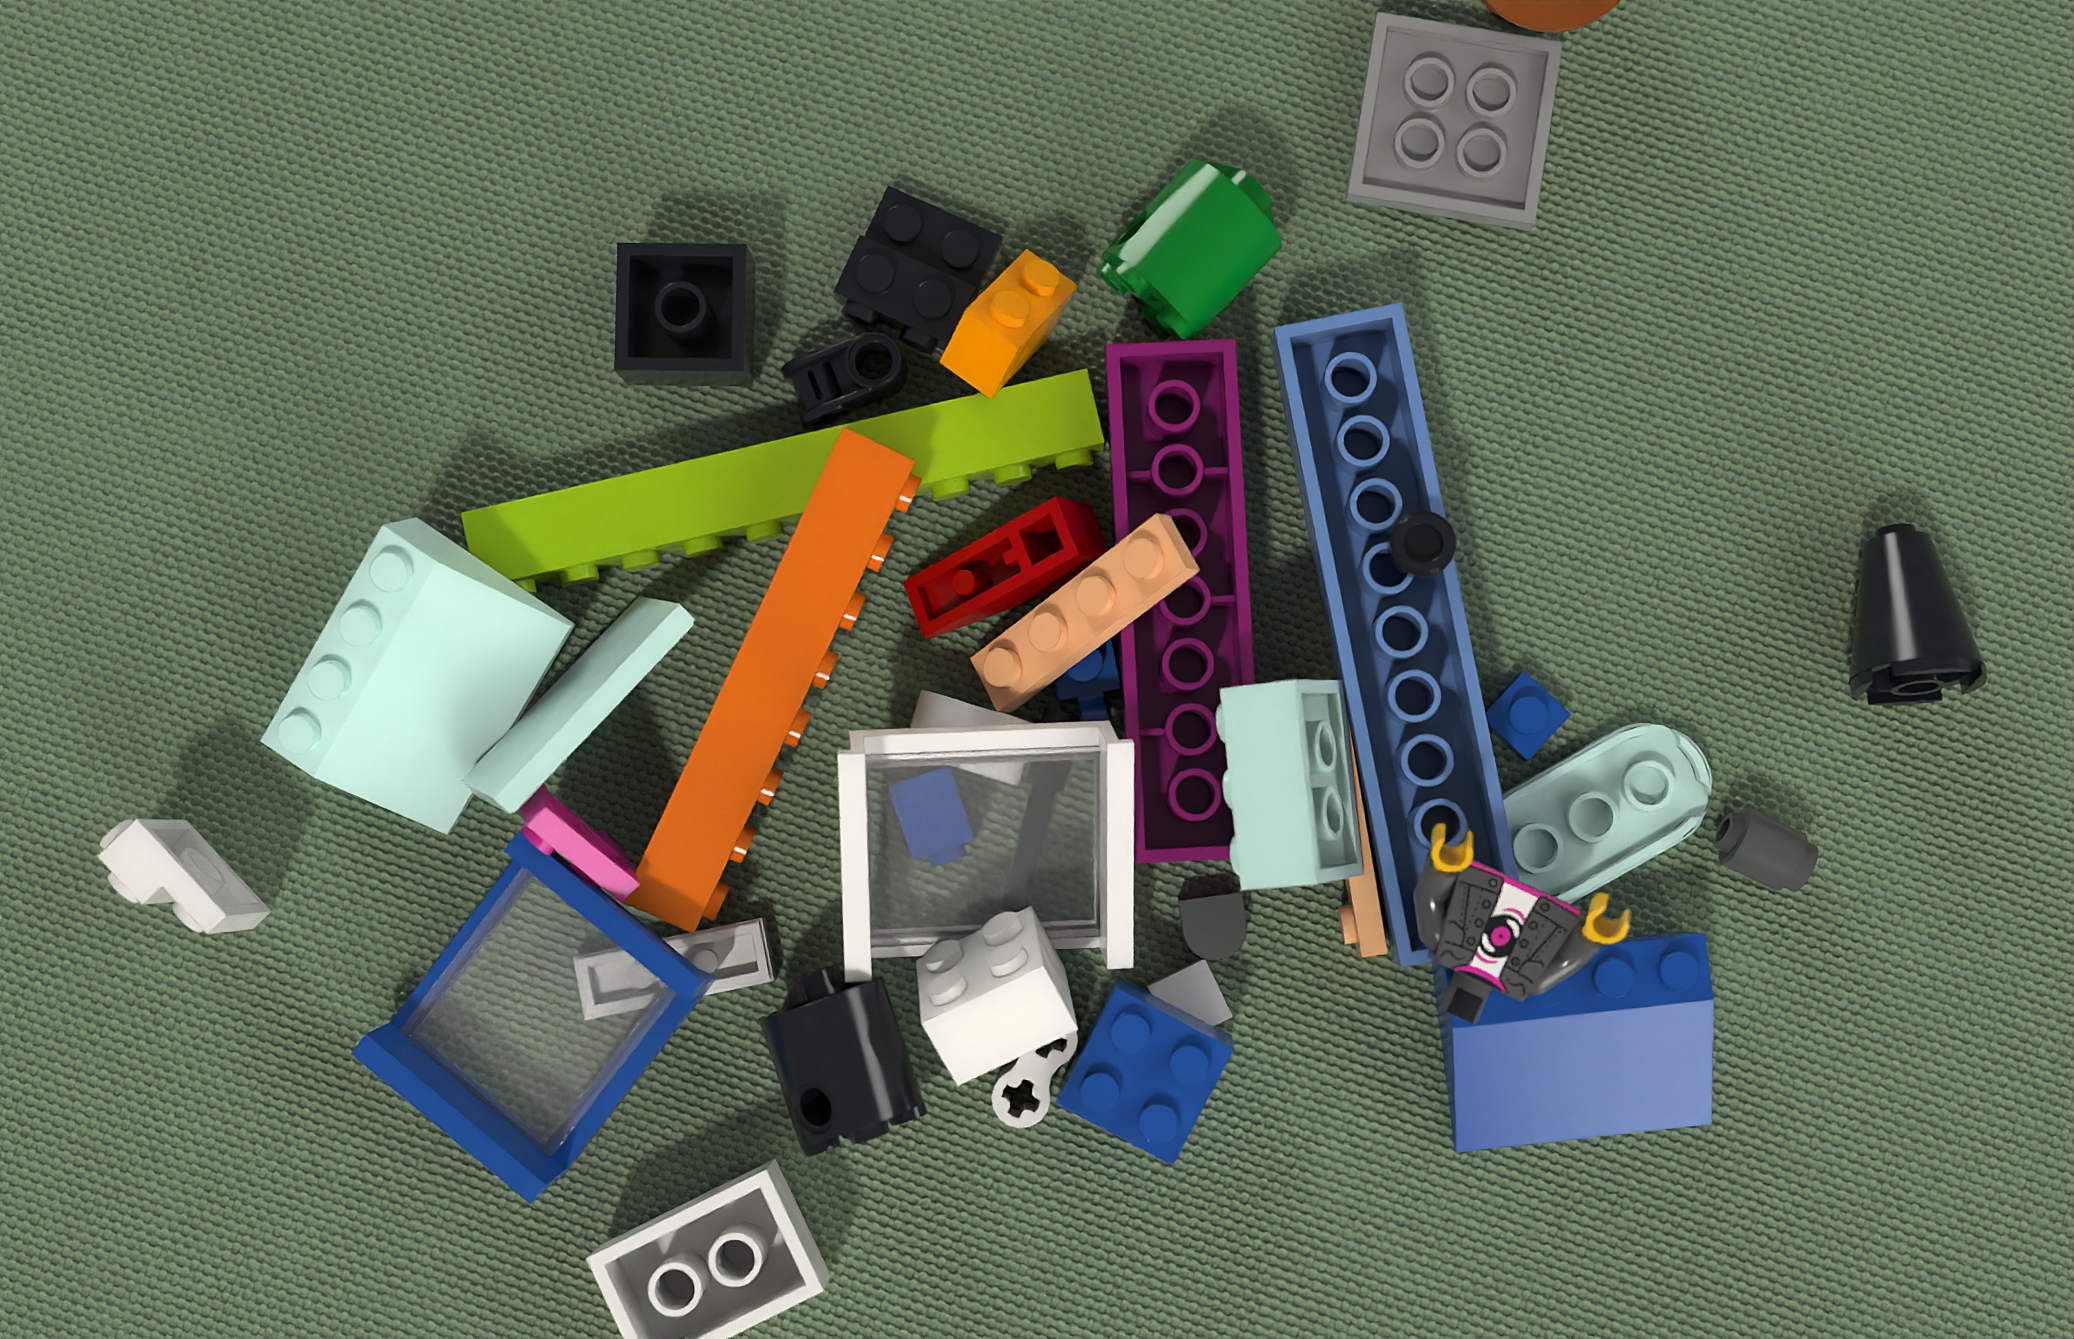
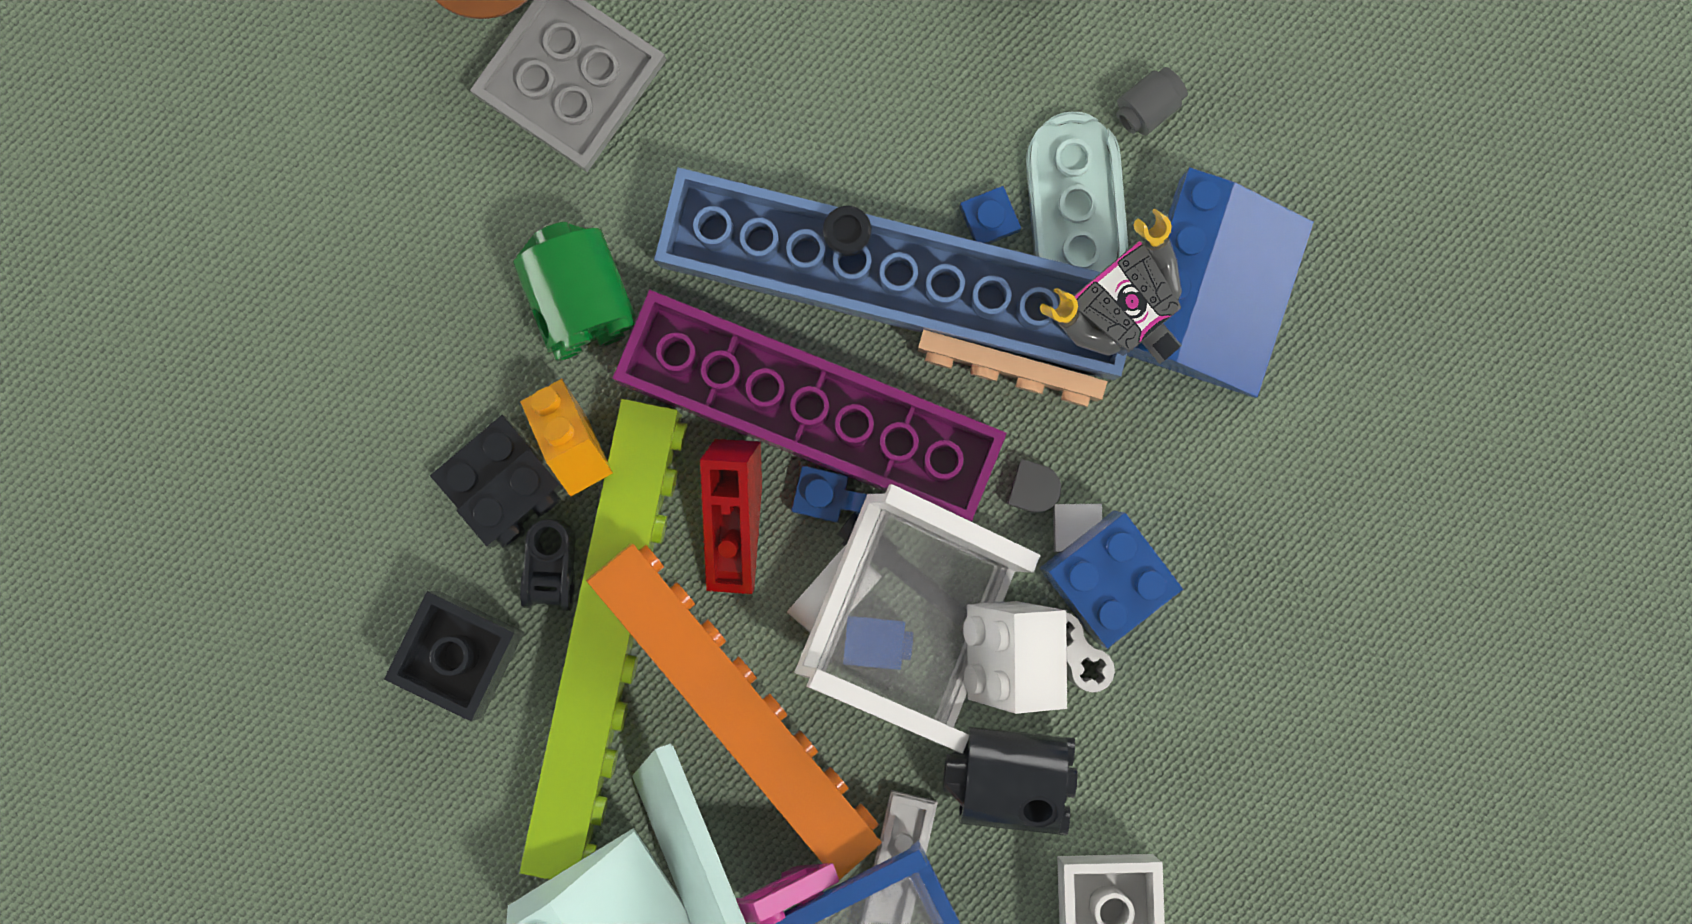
camera: 65 degrees left, 0 degrees up
(1084, 613) = (788, 477): light nougat plate -> none
(1289, 783) = (967, 393): light aqua slope -> none

